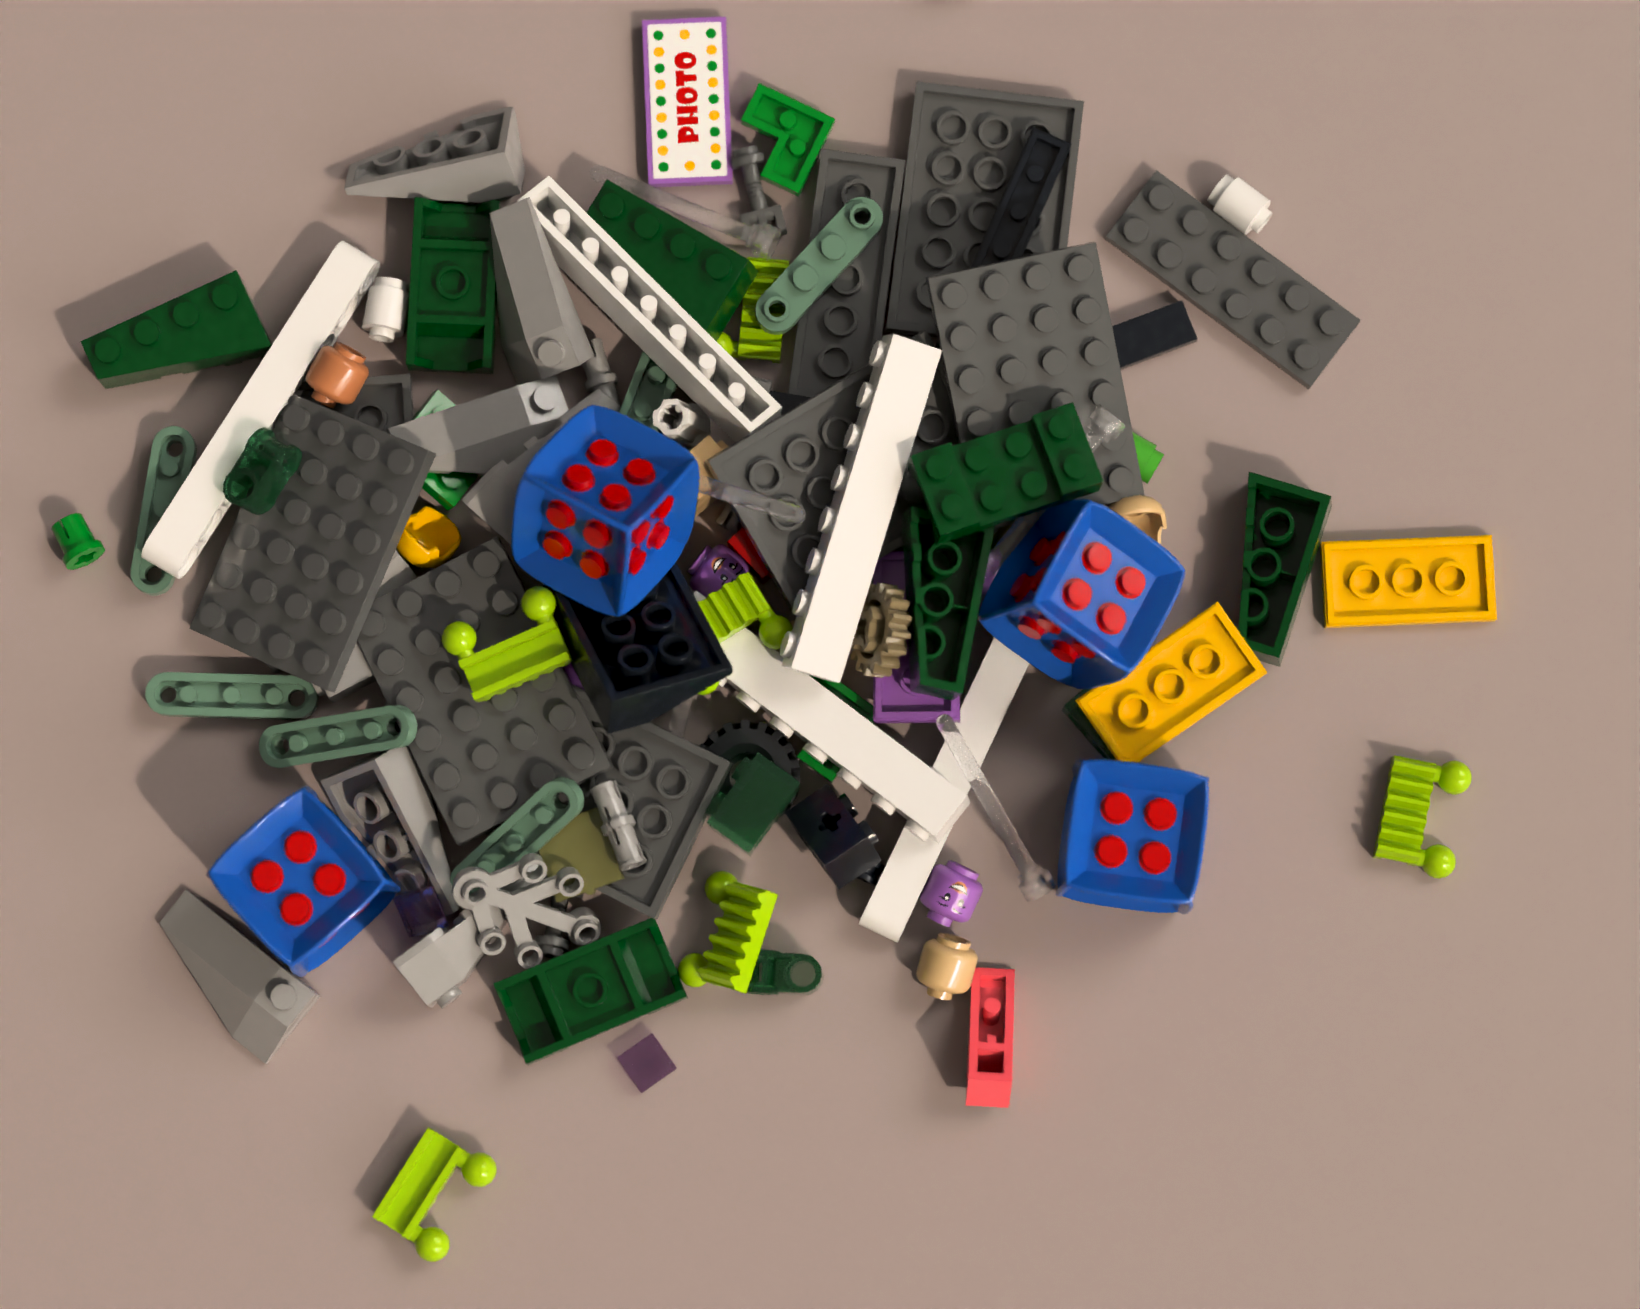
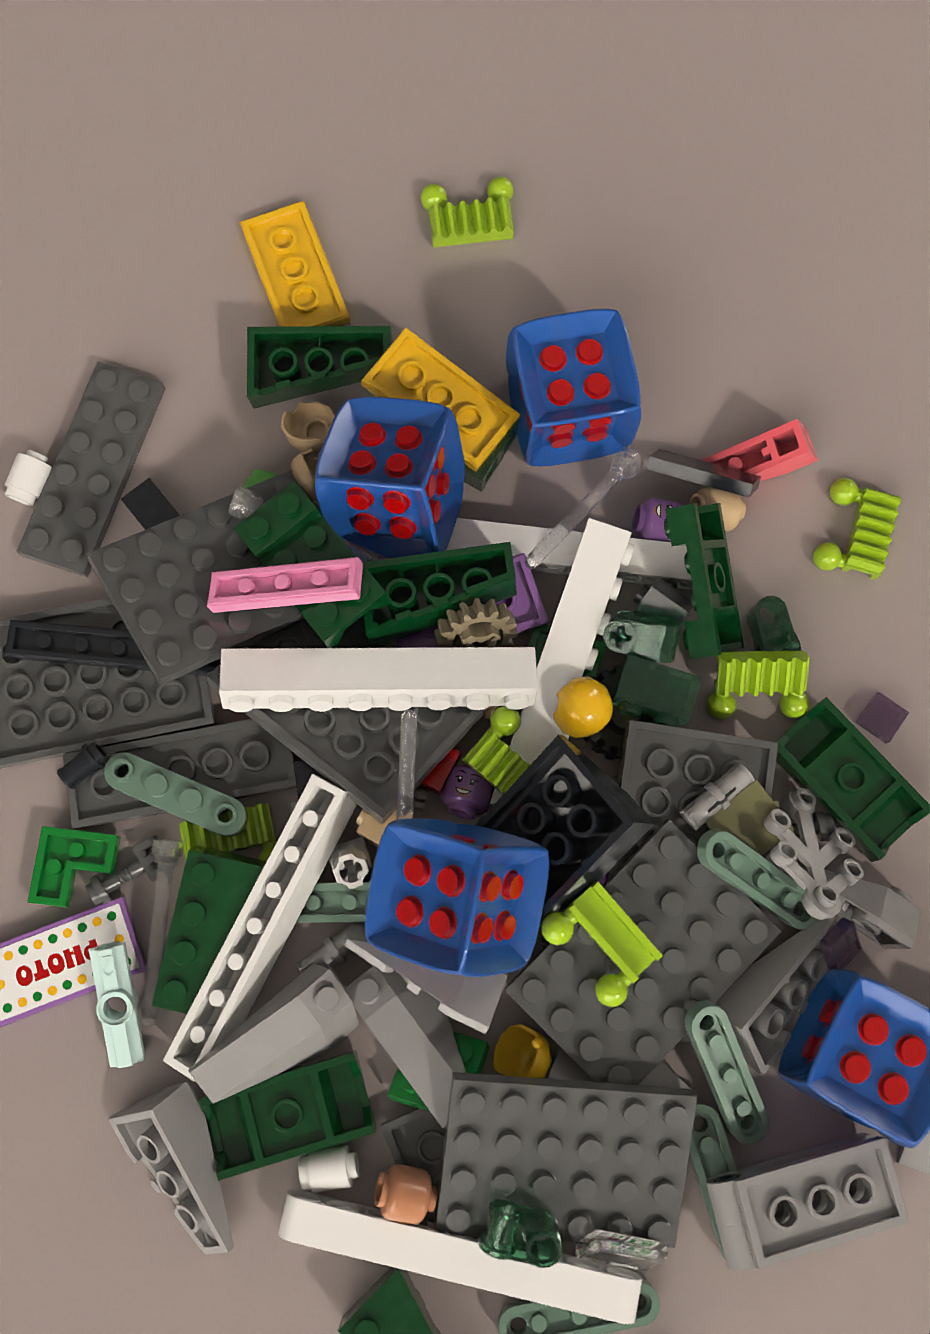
camera: 110 degrees left, 5 degrees down
(208, 570) = (621, 1250): none -> clear tile
(212, 703) = (747, 1200): none -> light grey hinge
(598, 143) = (120, 1028): none -> light aqua piece
(762, 719) = (583, 707): none -> yellow hair
(814, 813) = (648, 636): none -> clear green piece
(861, 912) = (711, 573): none -> dark green piece
(864, 1136) = (869, 530): none -> lime gear
(883, 178) = (83, 765): none -> black pin
(985, 434) = (285, 585): none -> bright pink tile
(991, 961) = (703, 473): none -> black tile
(1197, 535) = (307, 425): none -> tan hair

